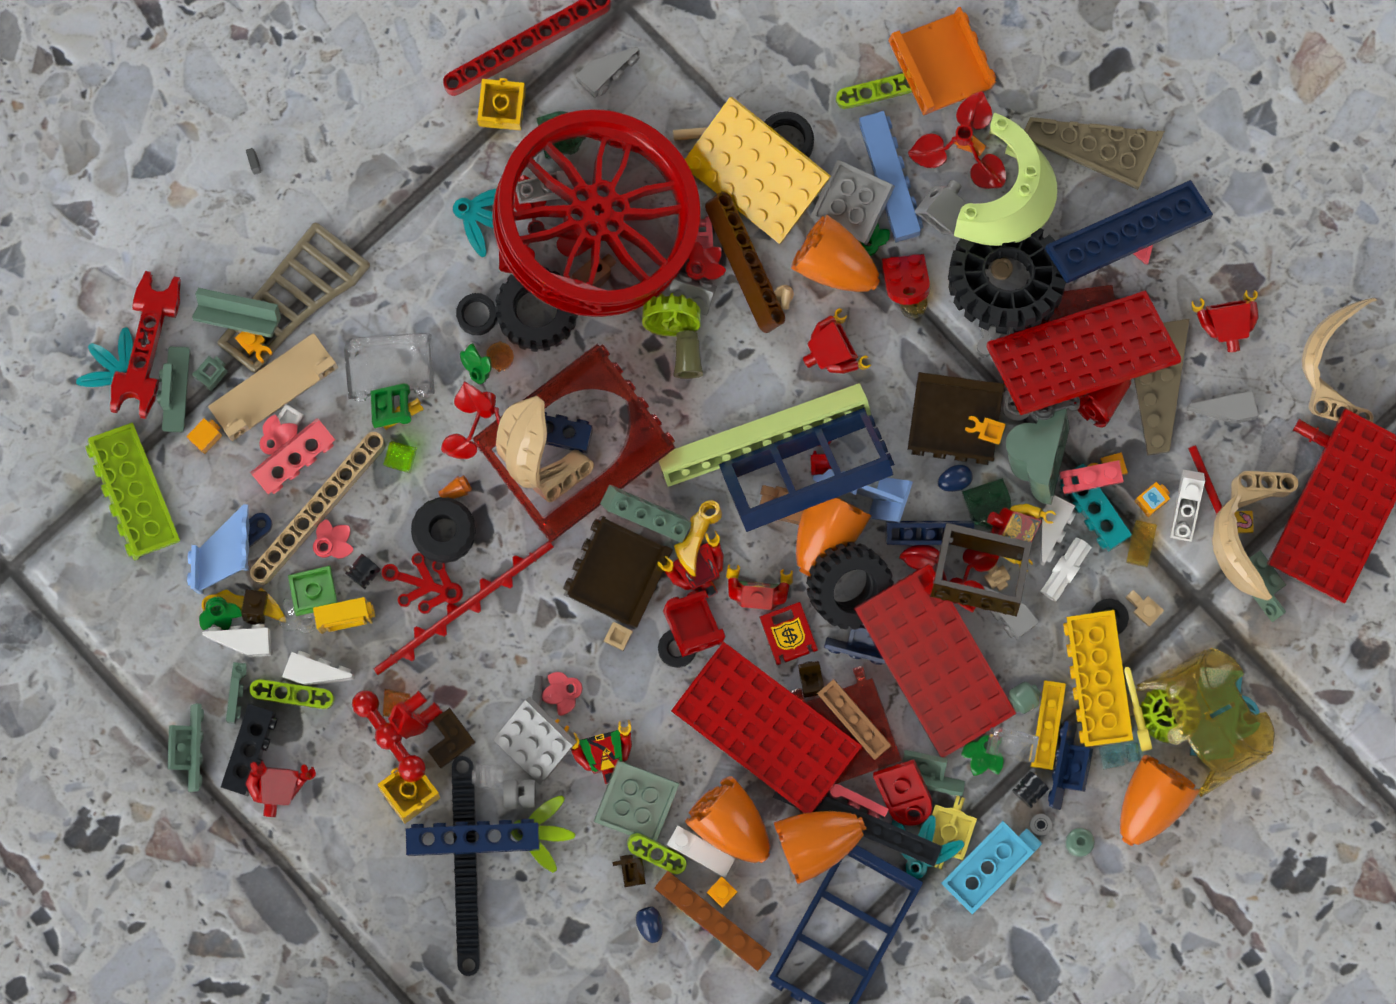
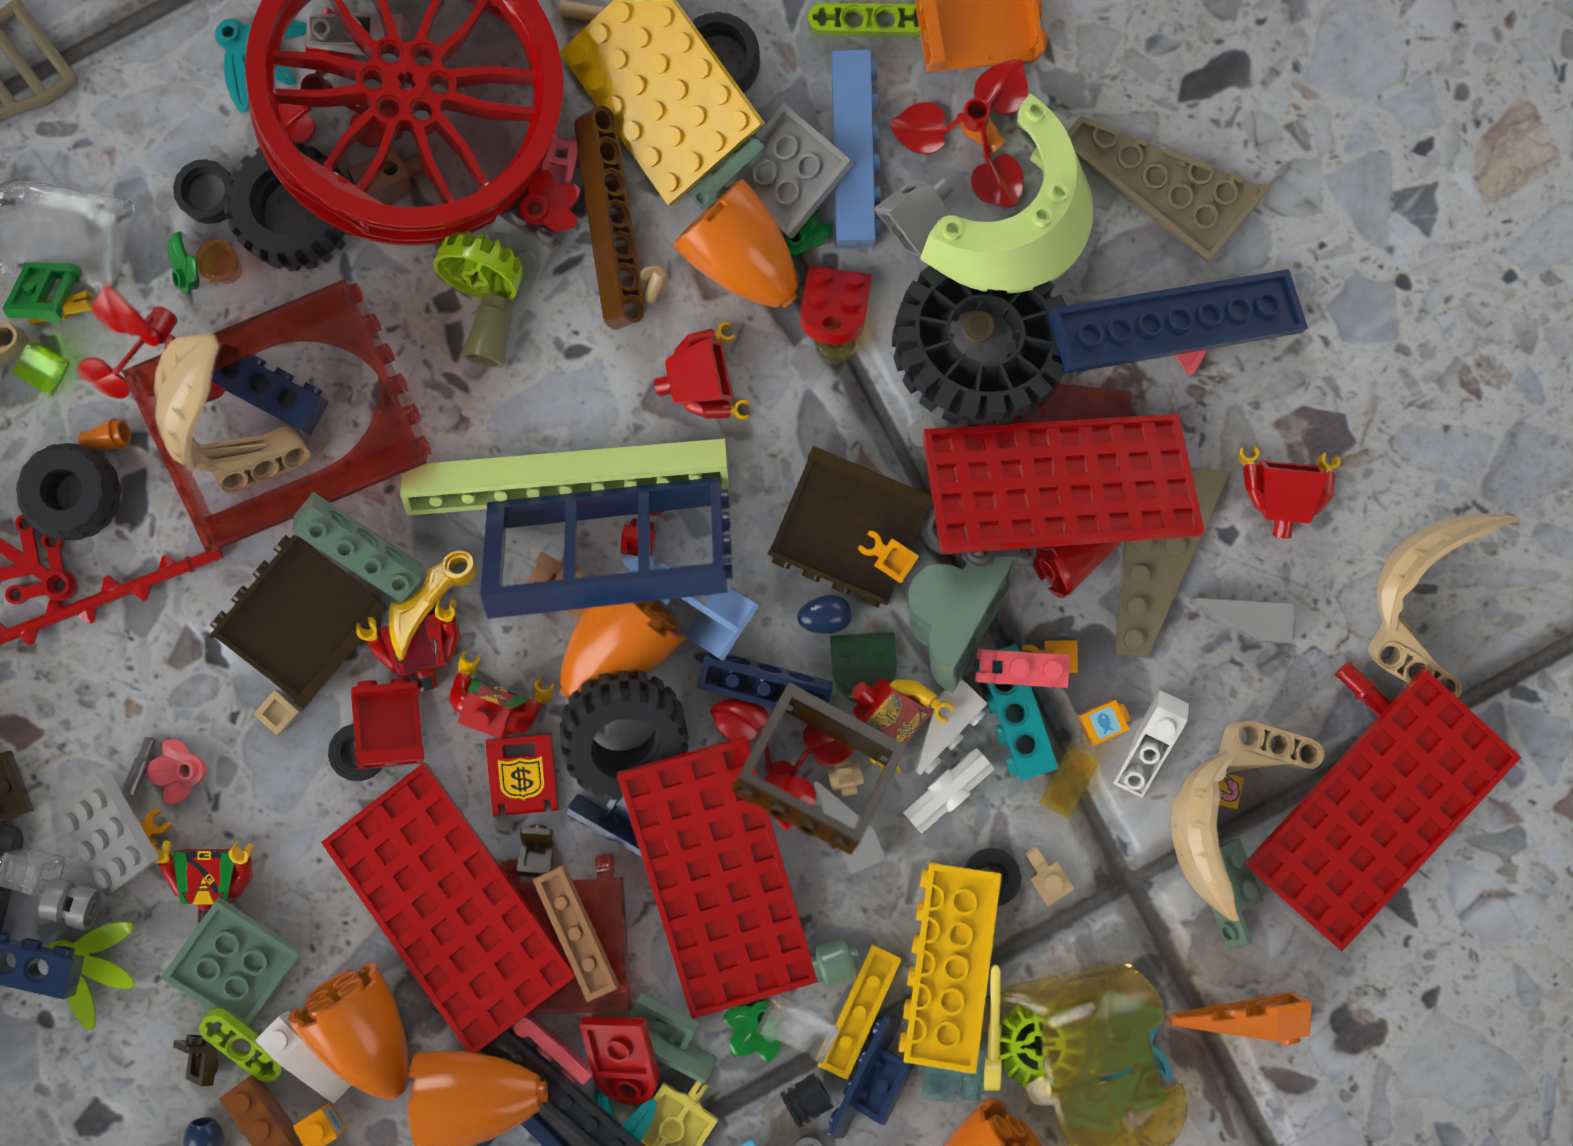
camera: 20 degrees right, 5 degrees up
(813, 213) = (726, 172): none -> sand green hinge
(1208, 483) = (1190, 727): red bar -> none
(1309, 658) = (1271, 1018): none -> orange wedge

